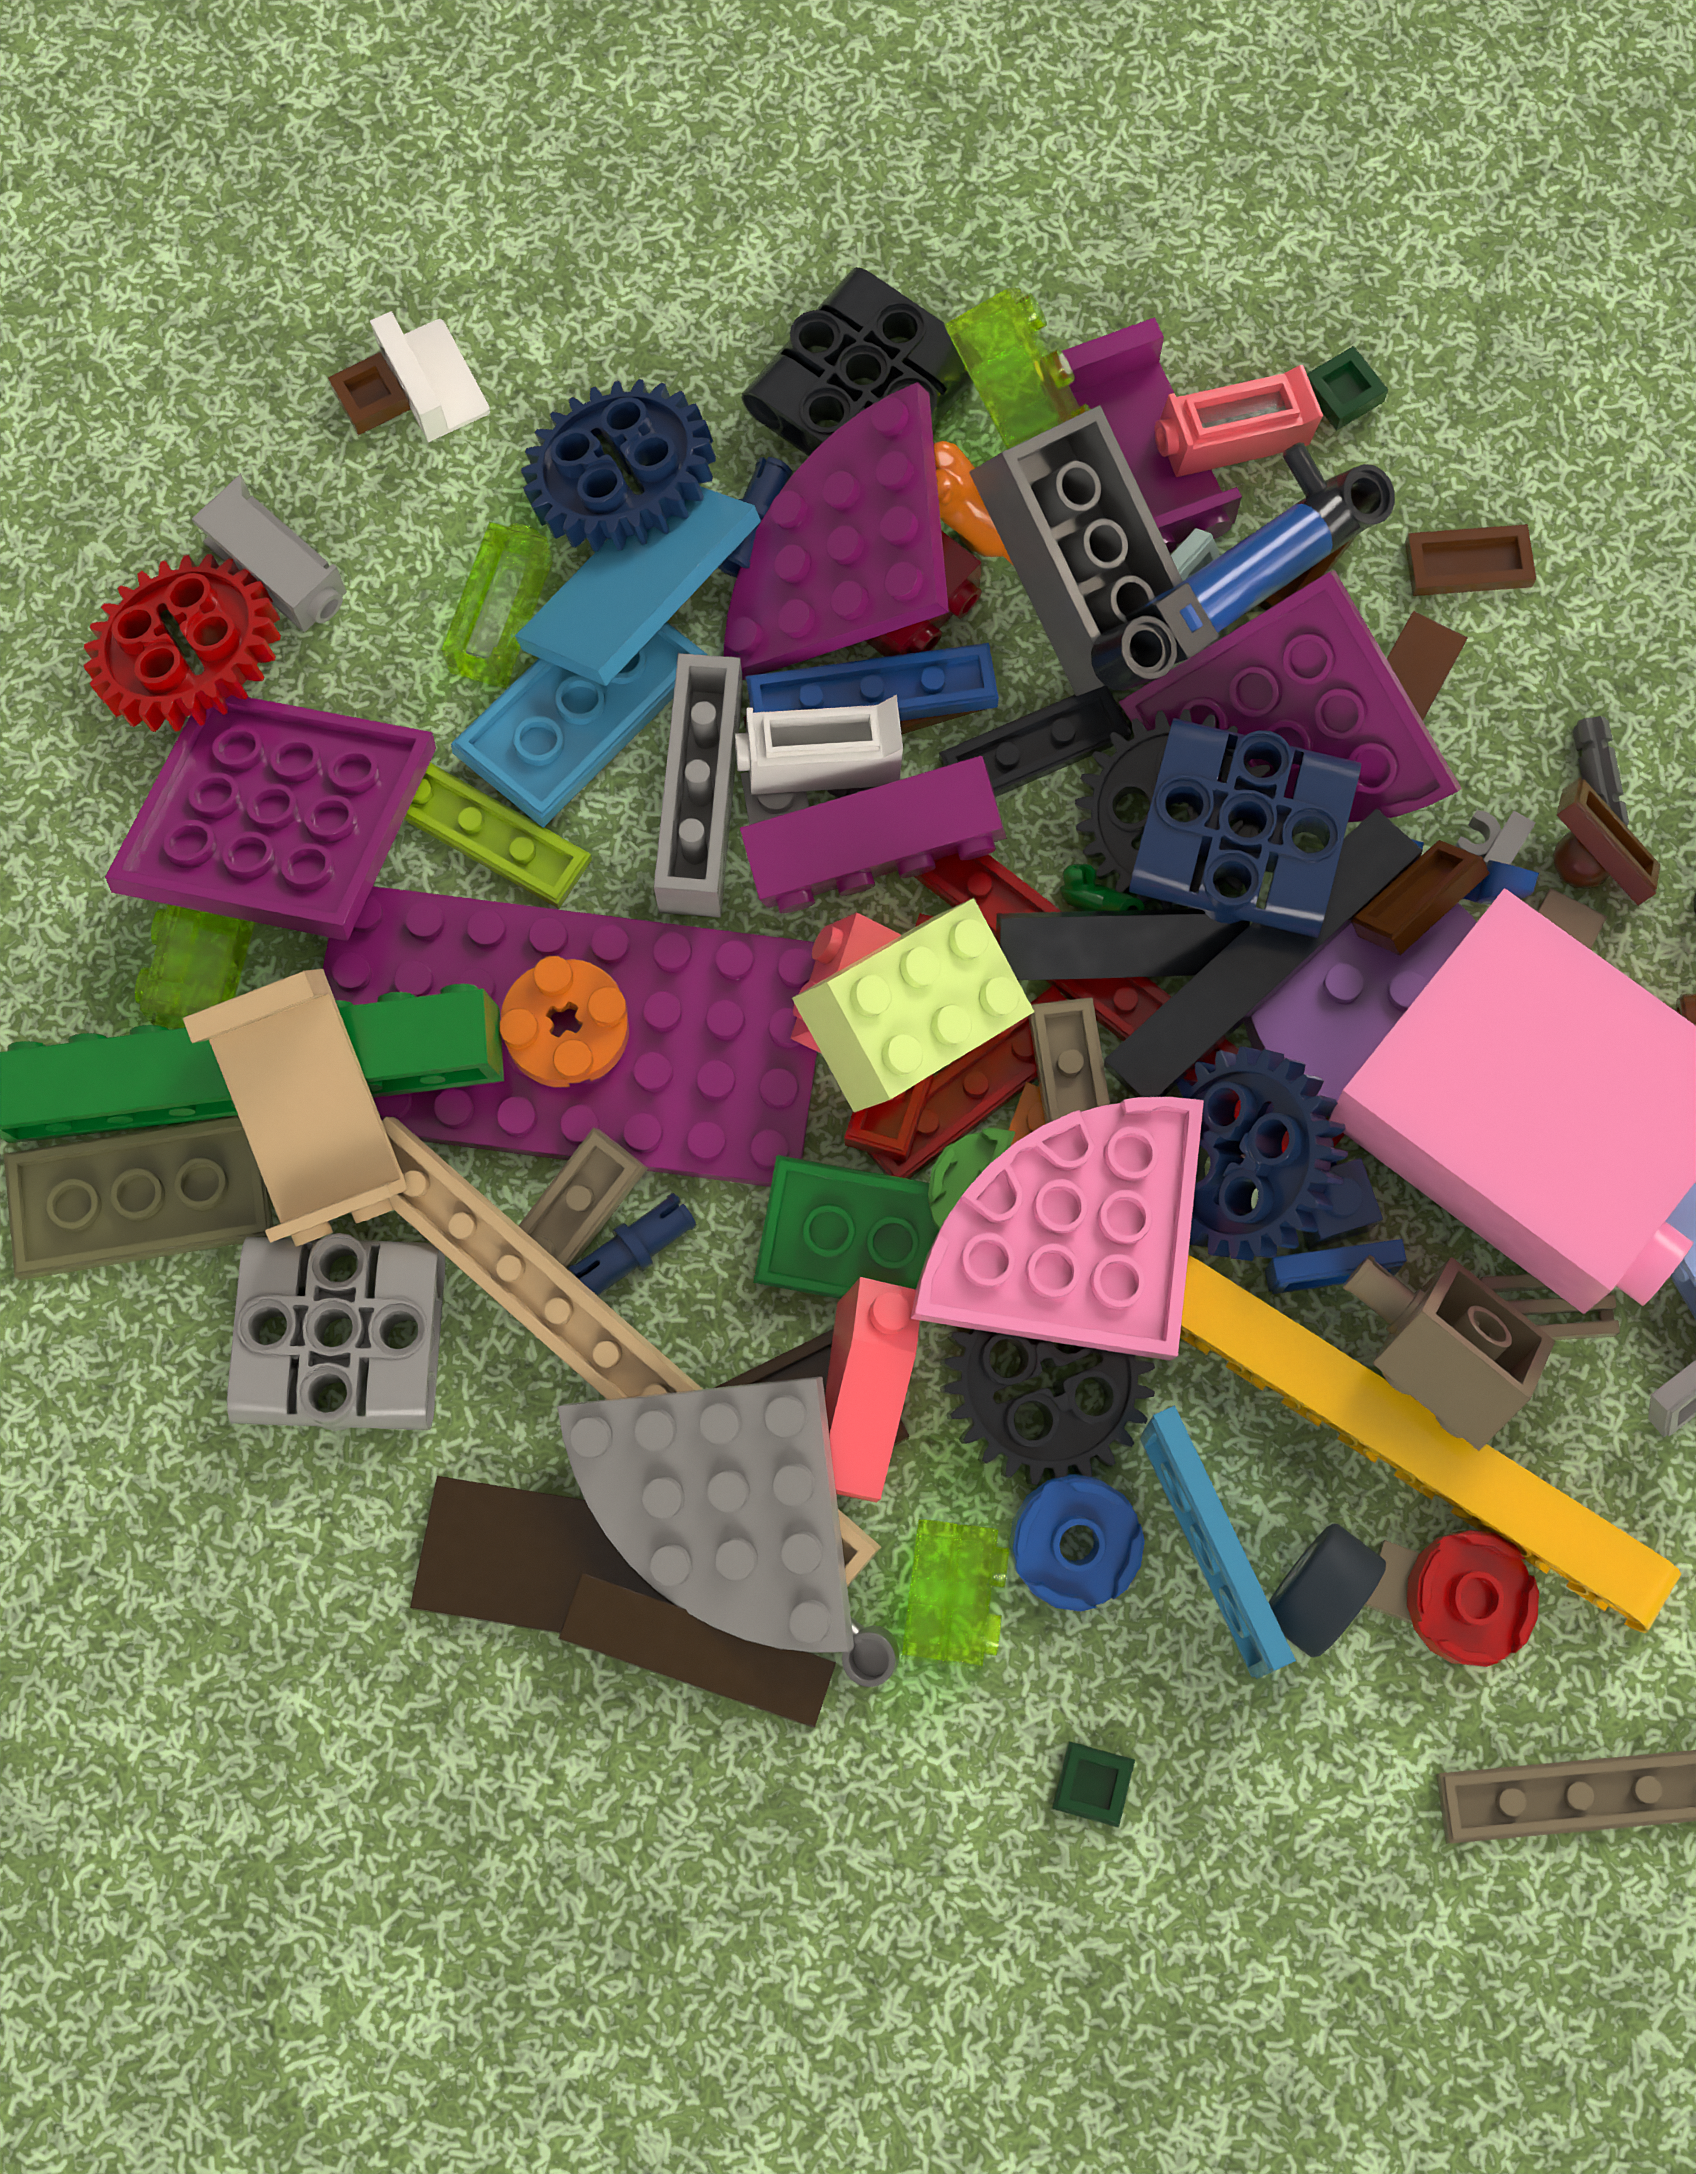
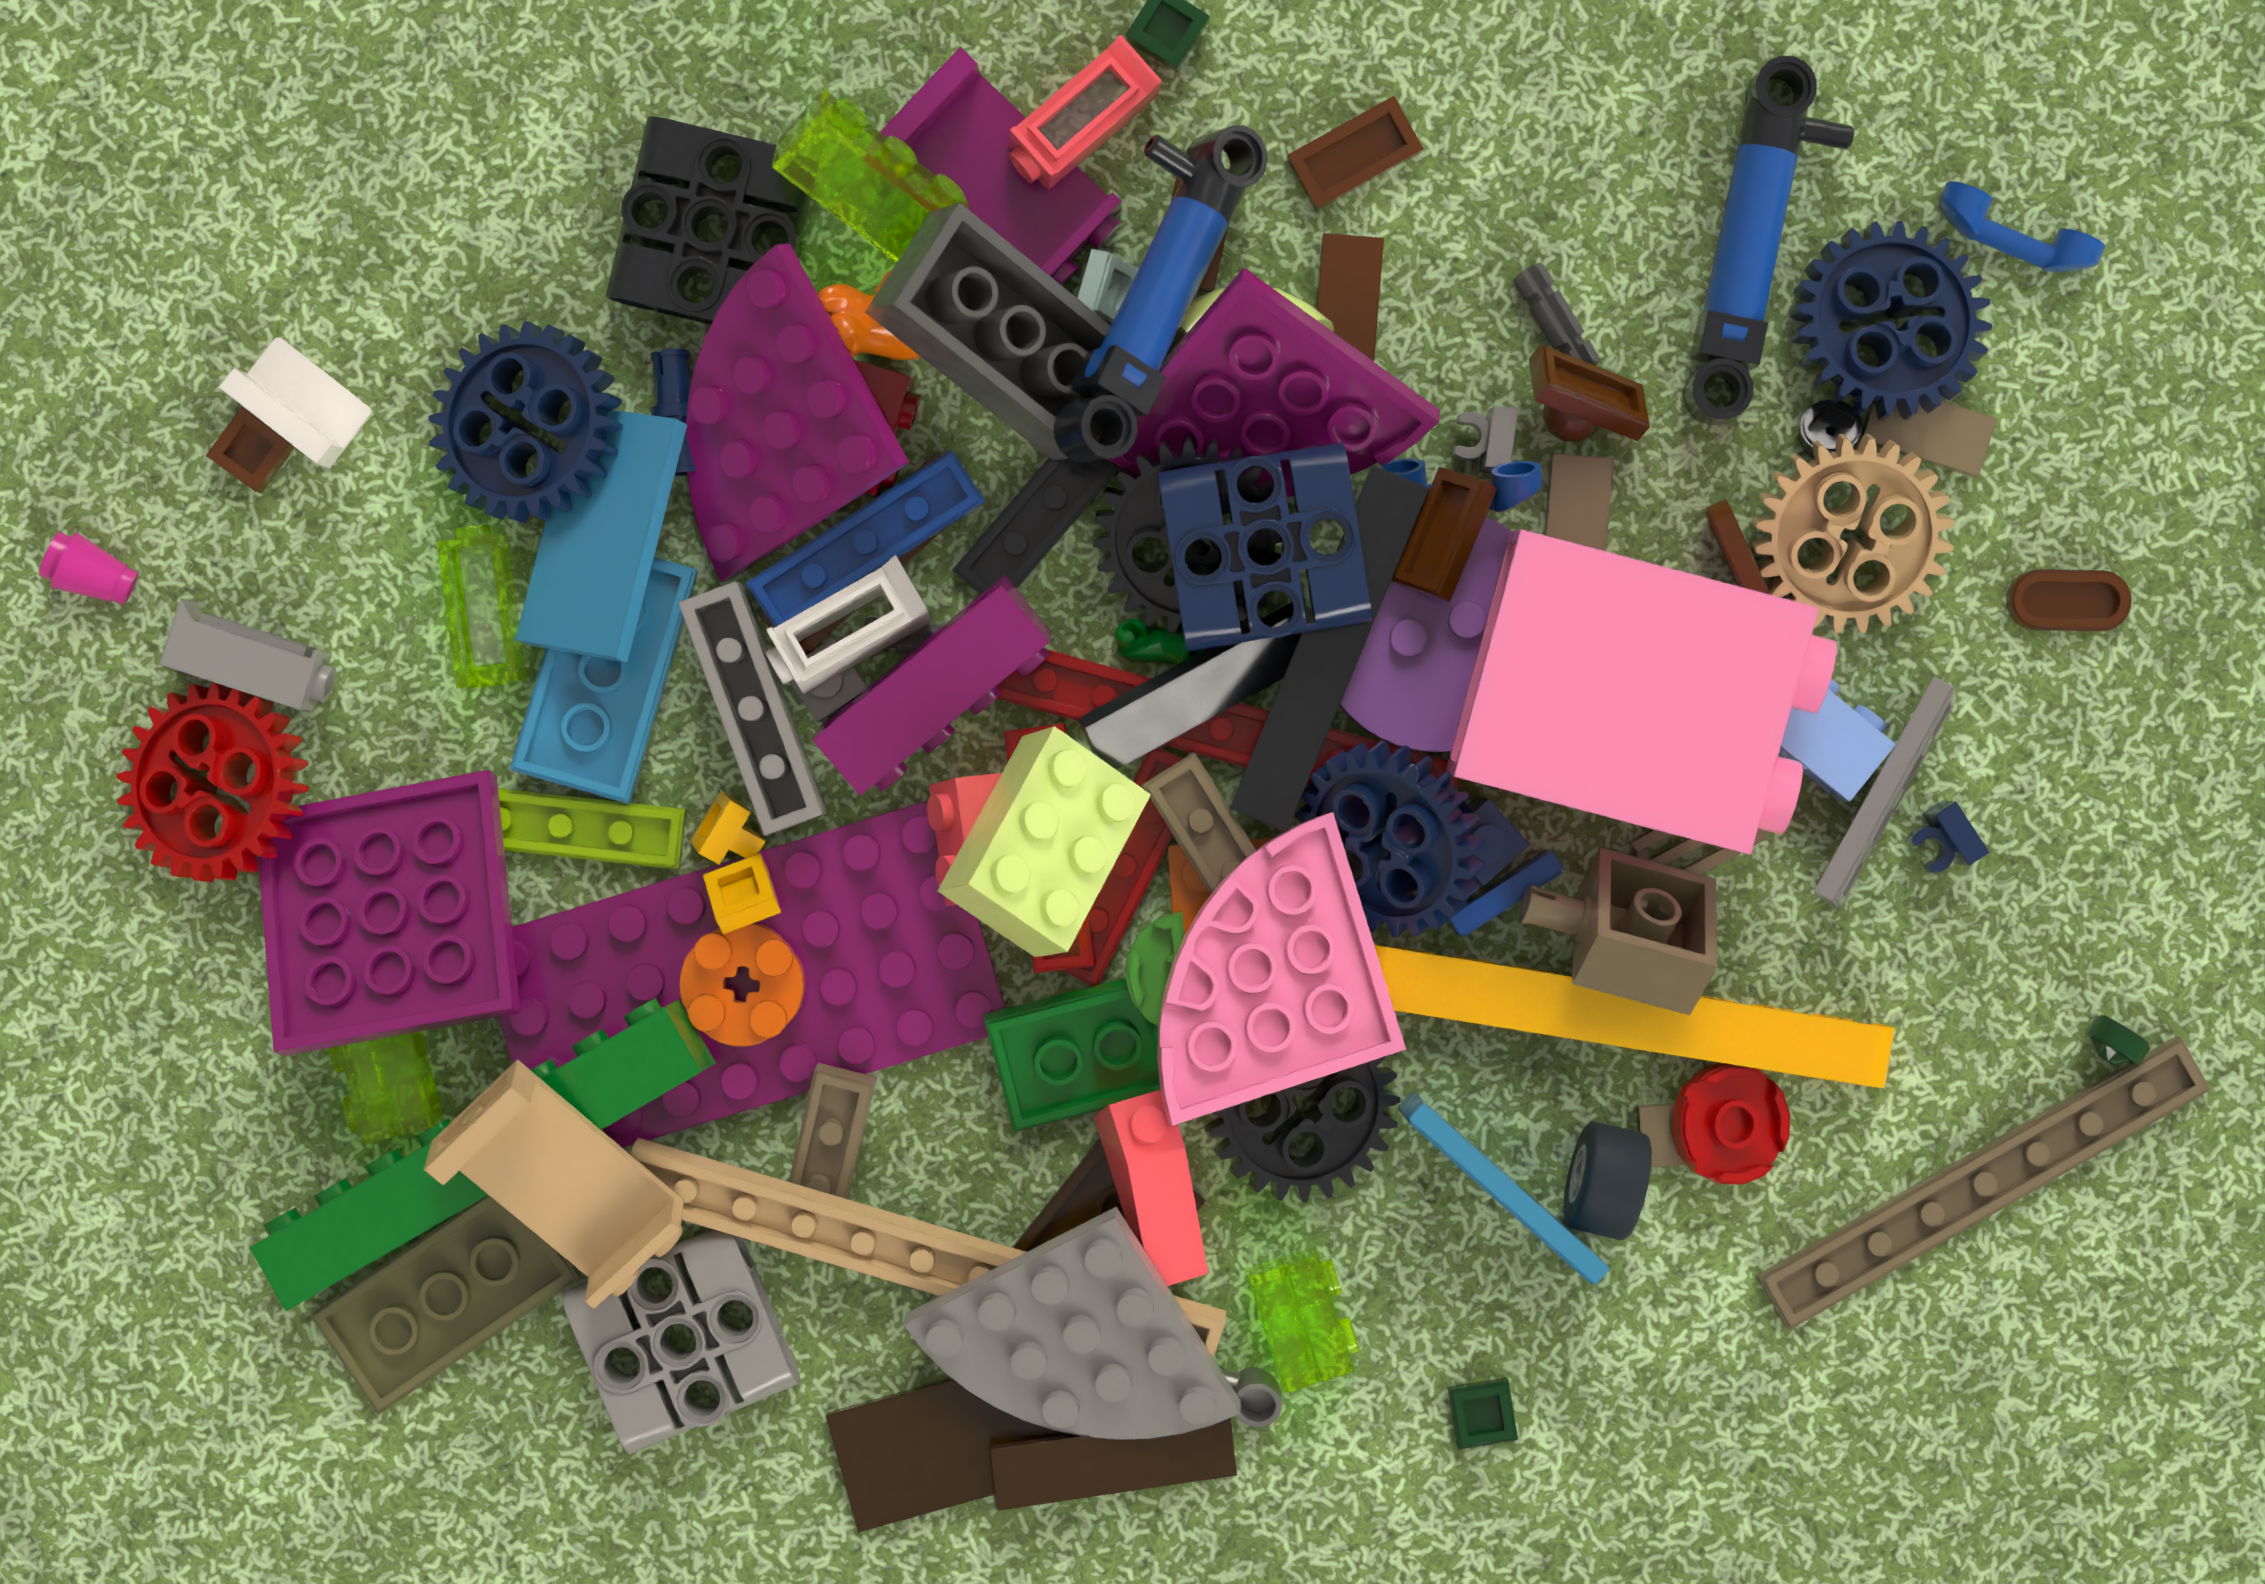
camera: 25 degrees left, 15 degrees up
(172, 426) = (86, 569): none -> dark pink cone
(606, 936) = (741, 893): none -> yellow plate
(620, 886) = (725, 830): none -> yellow tile
(634, 1245) = (895, 1147): dark blue pin -> none
(1038, 1533) = (1362, 1204): blue tile -> none

